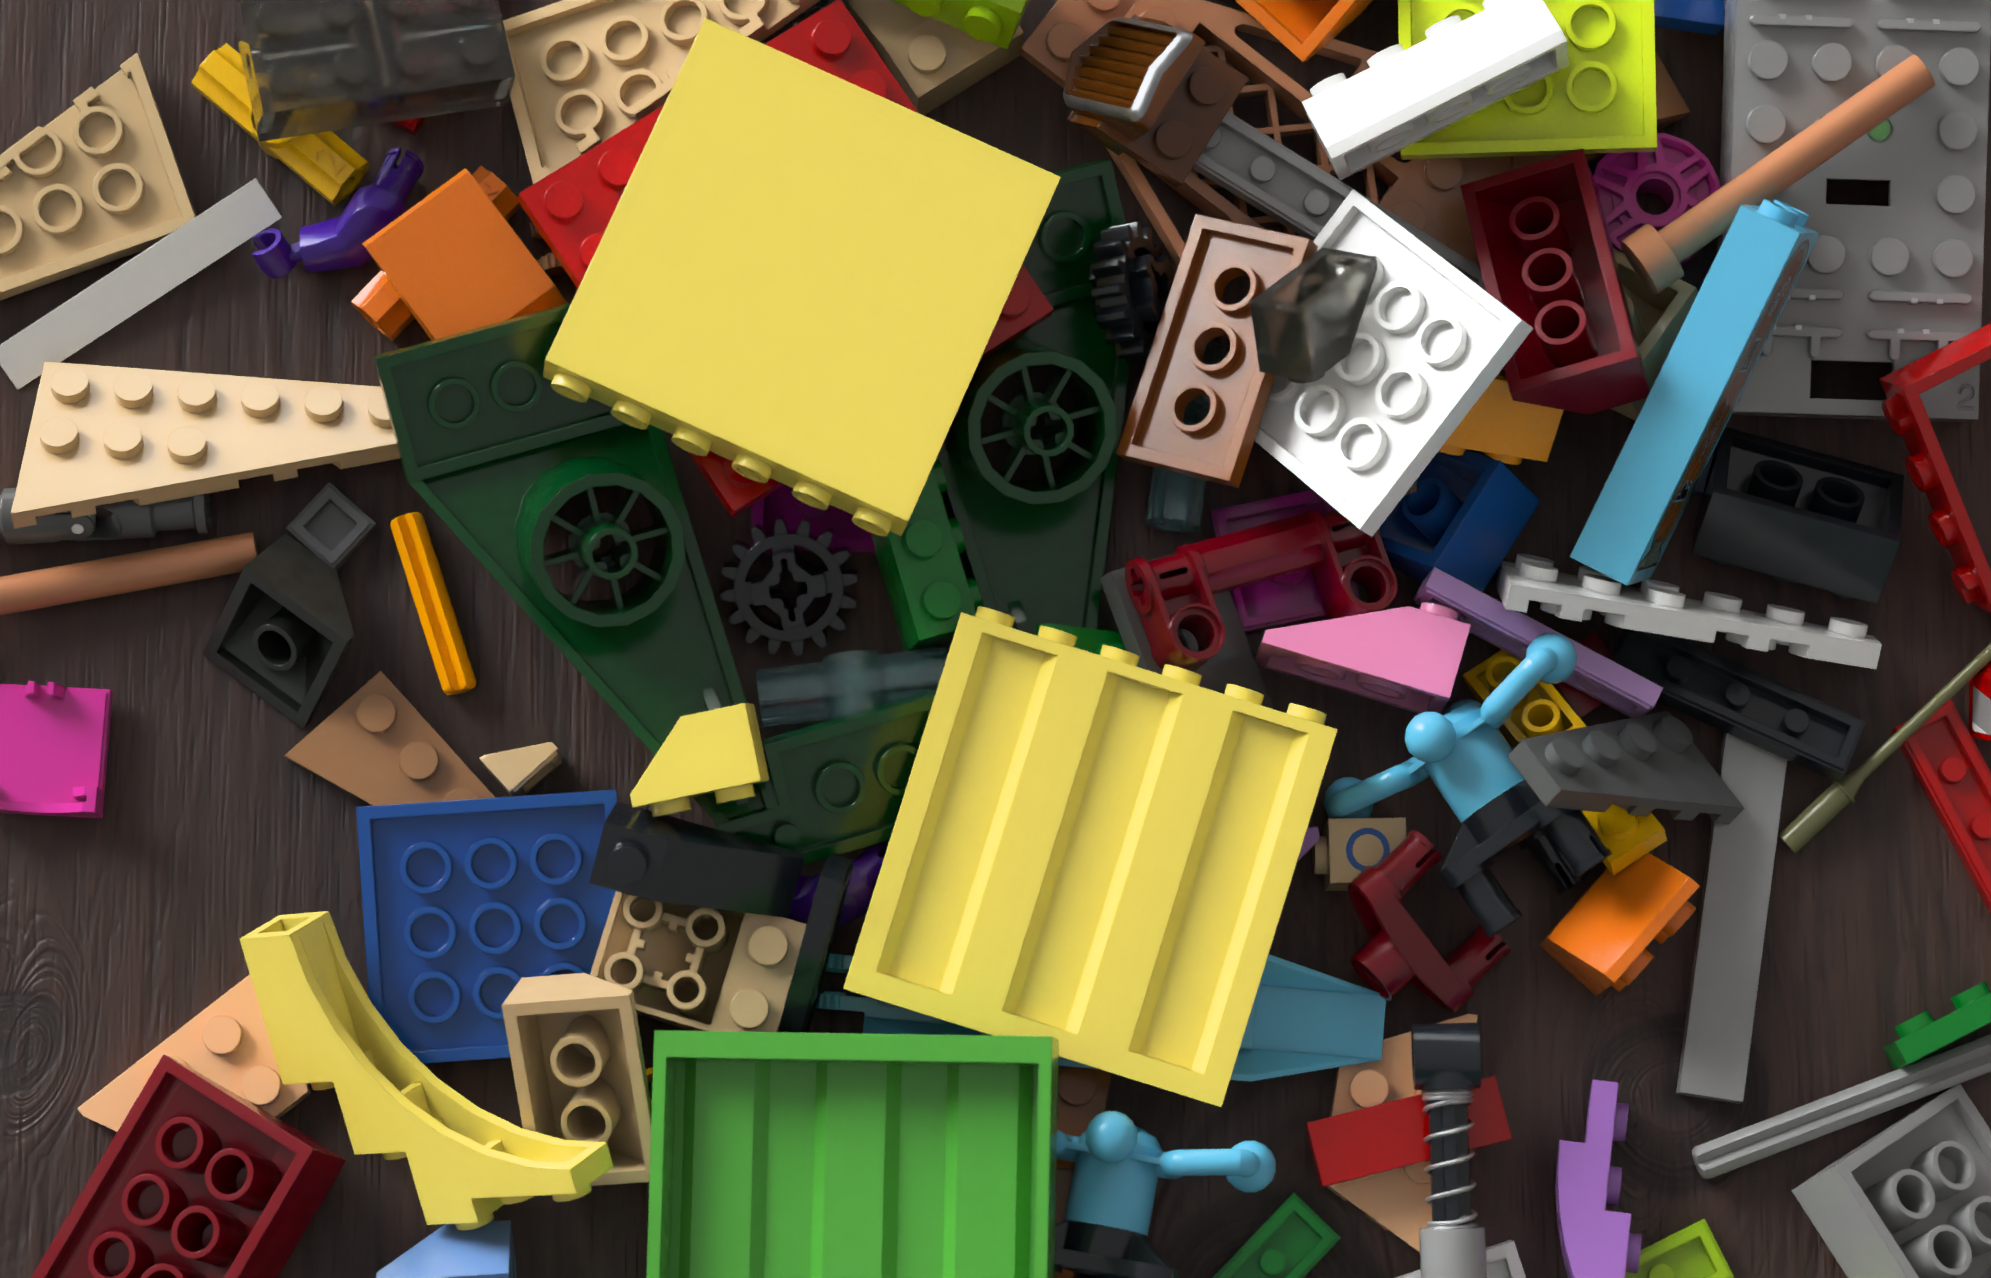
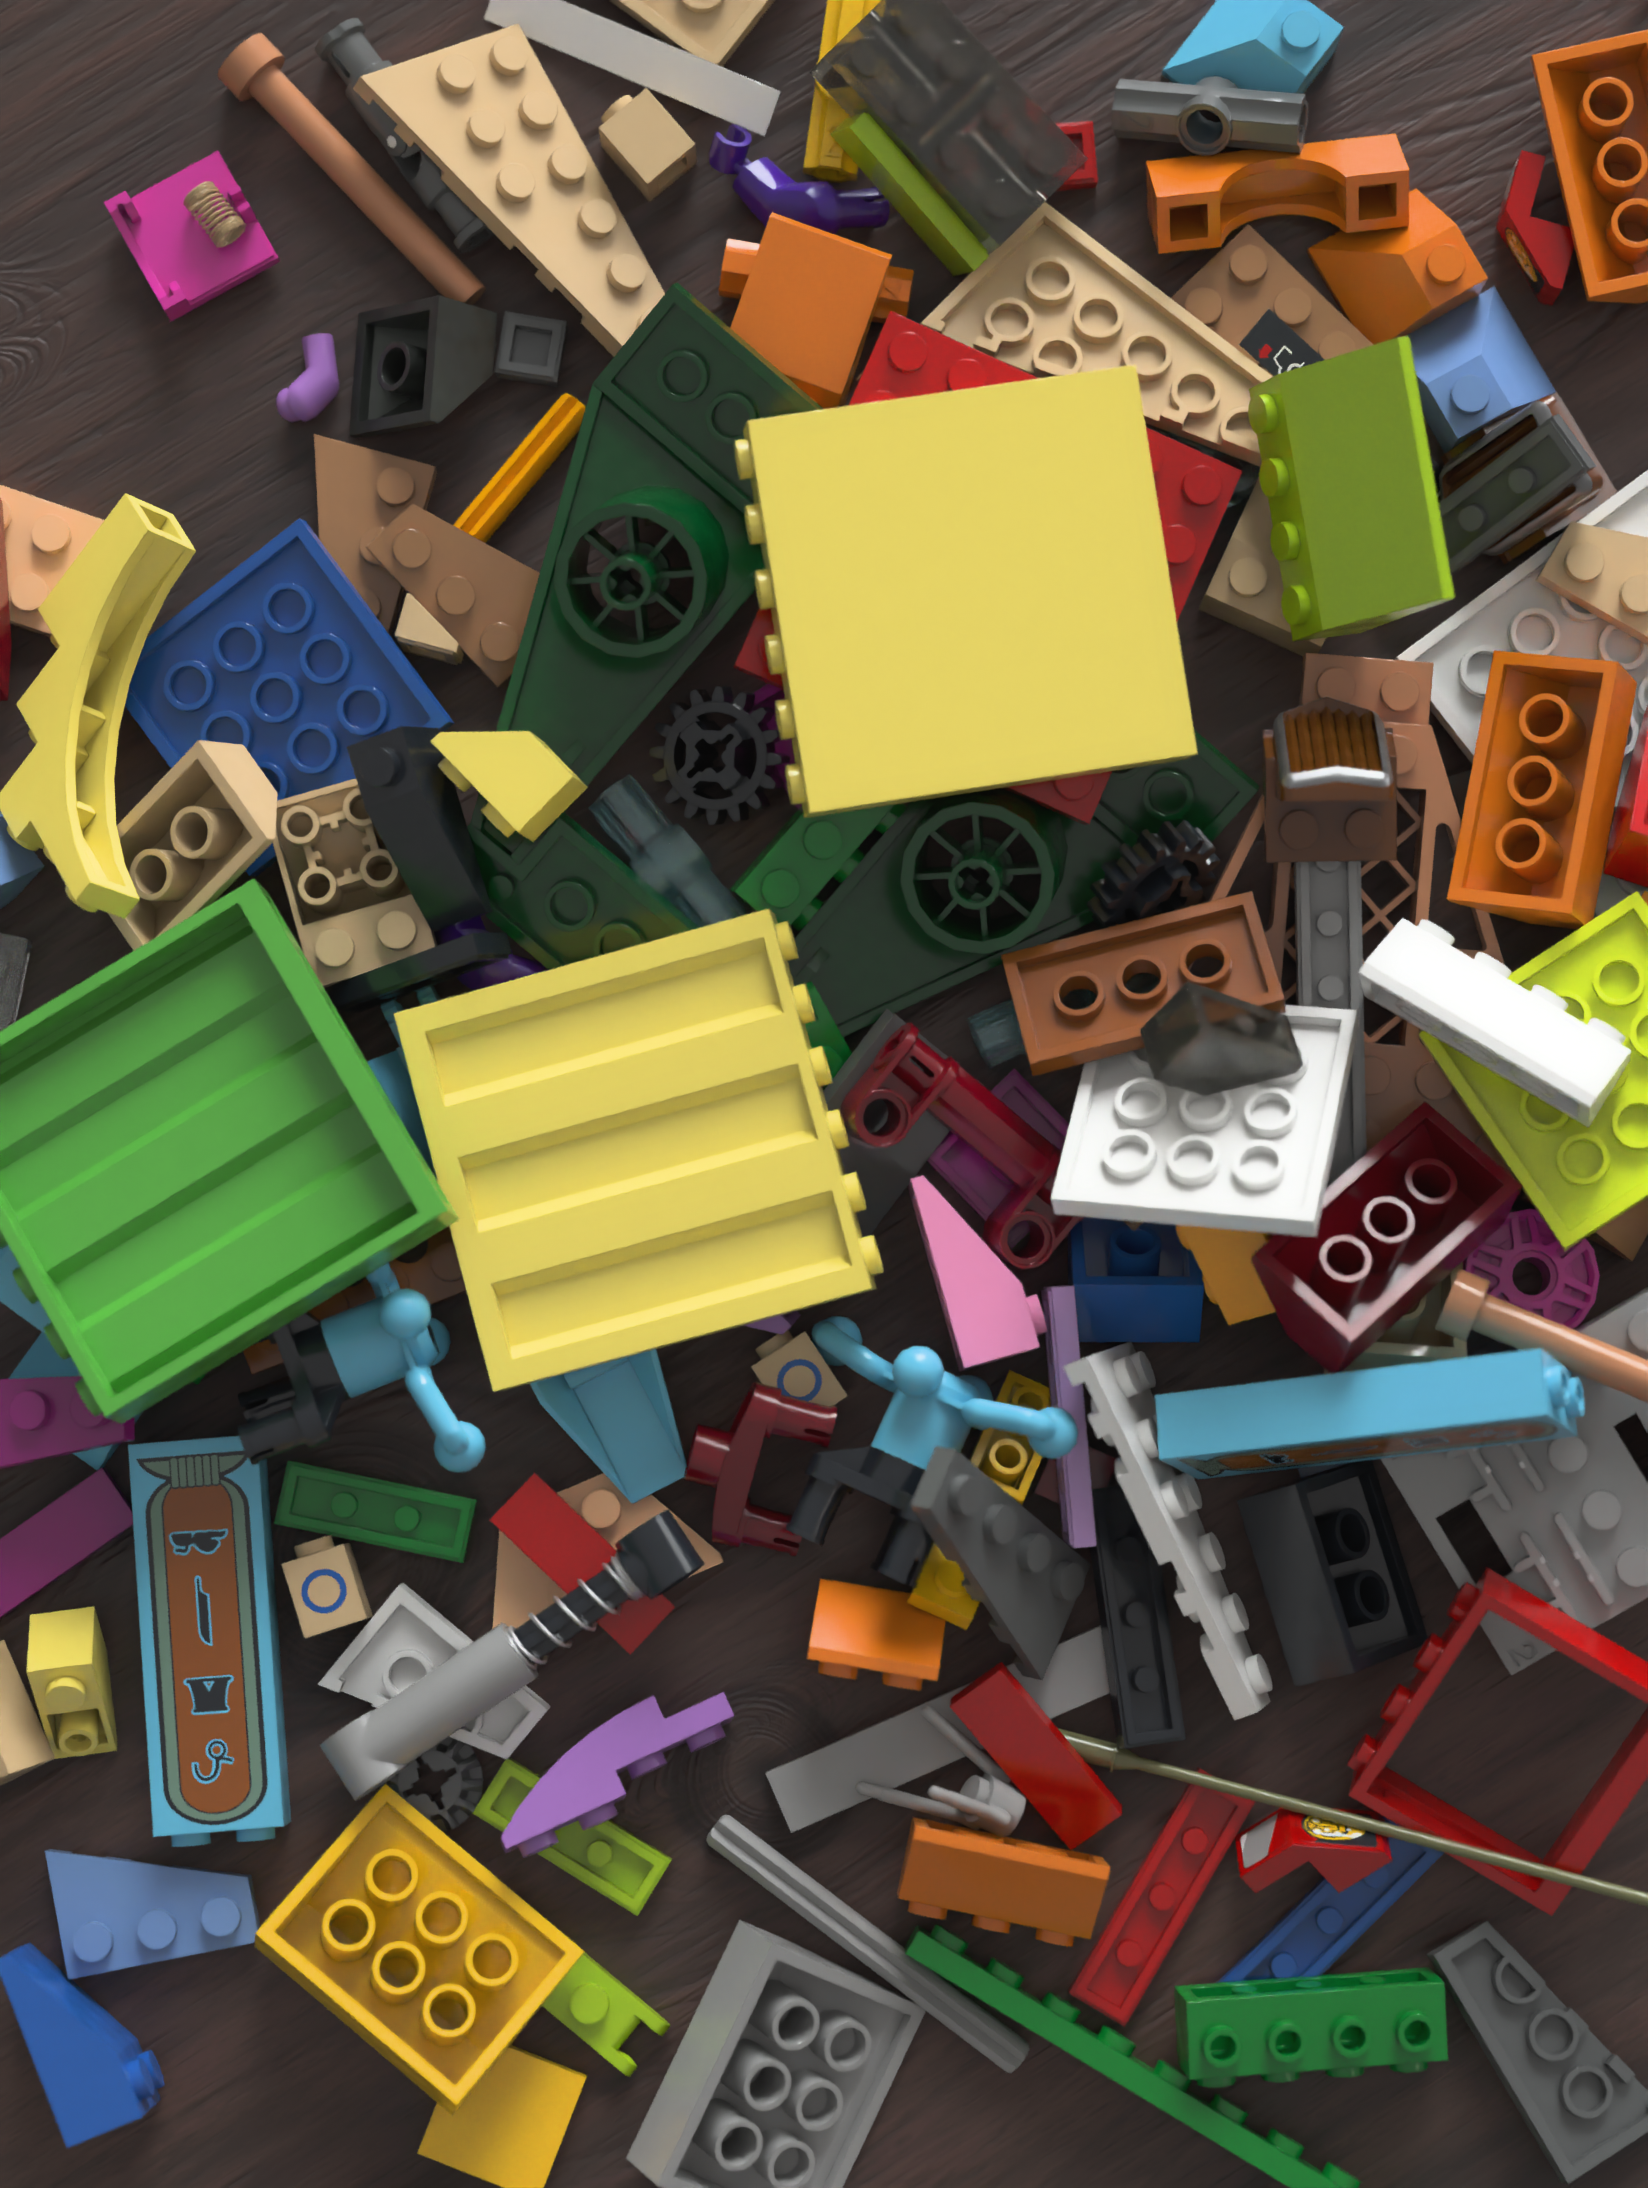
camera: 60 degrees right, 5 degrees up
(20, 722) = (199, 198): none -> tan piece
(221, 318) = (646, 143): none -> tan brick
(242, 727) = (316, 385): none -> medium lavender arm
(417, 125) = (910, 194): none -> lime tile
(505, 705) = (463, 584): none -> medium nougat wing
(1804, 854) = (1036, 1756): none -> red tile
(1814, 924) = (982, 1802): none -> light grey plant
(1893, 947) = (1002, 1881): none -> orange slope

